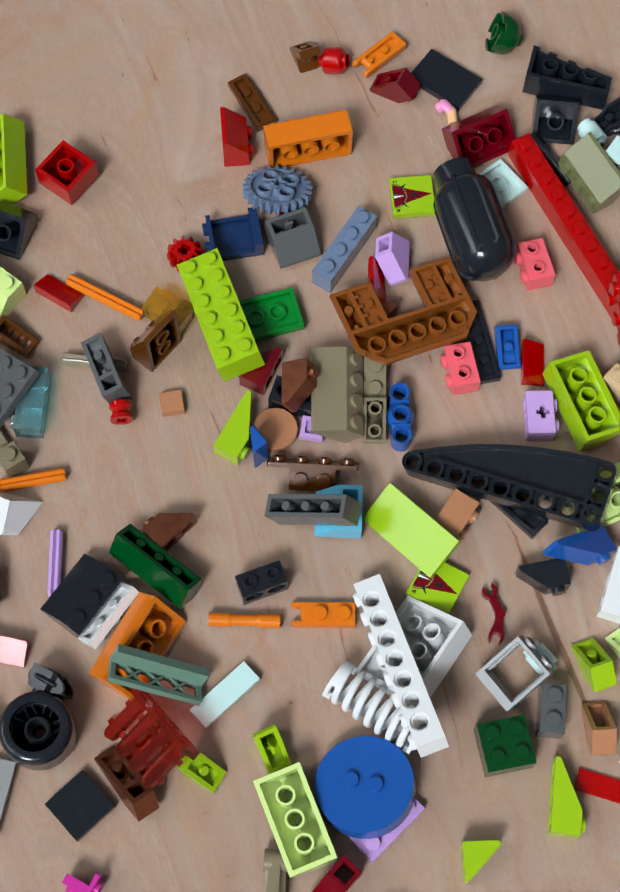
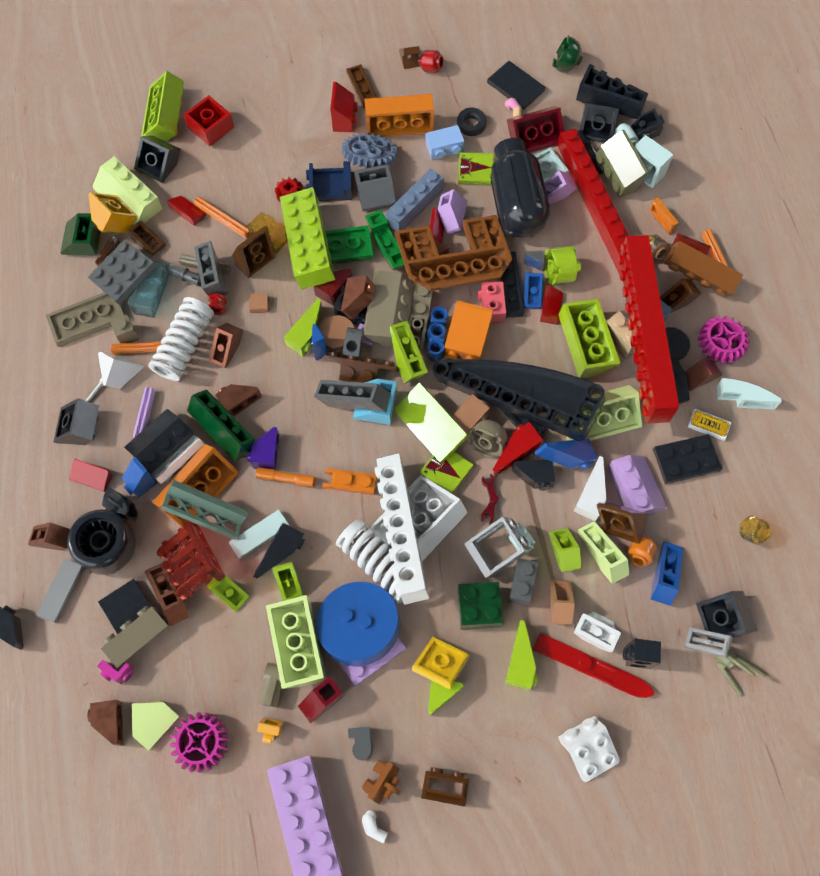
camera: 10 degrees right, 0 degrees up
(65, 646) = (137, 479): none -> blue slope
(72, 378) = (184, 274): none -> dark grey axle
(96, 449) = (191, 328): none -> white piece
(98, 838) = (134, 635): none -> dark tan brick
(140, 462) = (225, 344): none -> copper slope
(214, 591) = (265, 450): none -> dark purple slope
(257, 705) = (283, 545): none -> black slope
(261, 582) = (303, 449): black brick -> none
(300, 441) = (352, 342): none -> dark grey leg
(316, 304) = (385, 239): none -> green slope
(368, 167) = (444, 142): none -> light blue brick
(369, 447) = (407, 353): none -> lime slope
(380, 54) = (468, 60): orange hinge -> none
(396, 85) = (477, 84): dark red slope -> none
(397, 123) = (471, 113): none -> black tyre
(438, 411) = (468, 331): none -> orange slope
(470, 820) = (440, 662): none -> yellow tile
(483, 541) = (488, 438): none -> dark tan cylinder
(504, 307) = (534, 259): none -> flat silver slope
(520, 209) = (559, 186): none -> lavender slope
(523, 543) = (520, 445): none -> red slope
(534, 264) = (564, 228): coral brick -> none
(536, 427) = (549, 337): lavender brick -> none
(538, 312) = (561, 265): none -> lime brick

